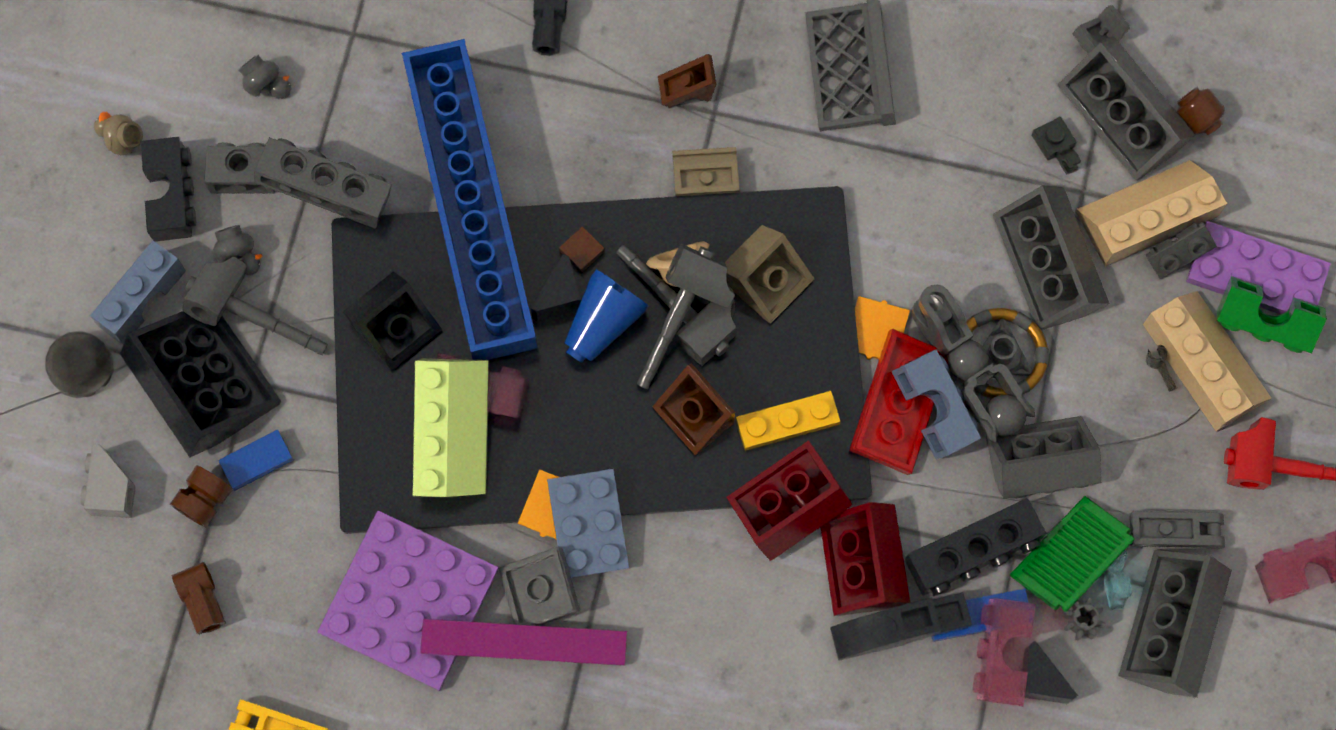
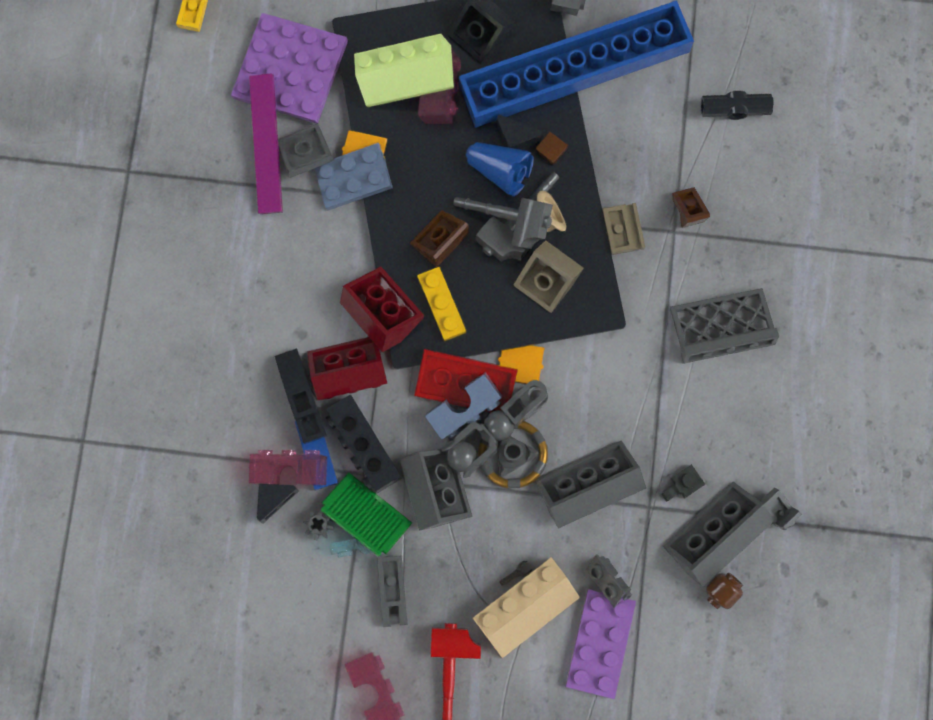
camera: 85 degrees right, 5 degrees up
(1151, 211) = (638, 557): tan slope -> none
(1175, 622) = (322, 592): dark grey slope -> none
(1295, 329) = (555, 668): green arch -> none

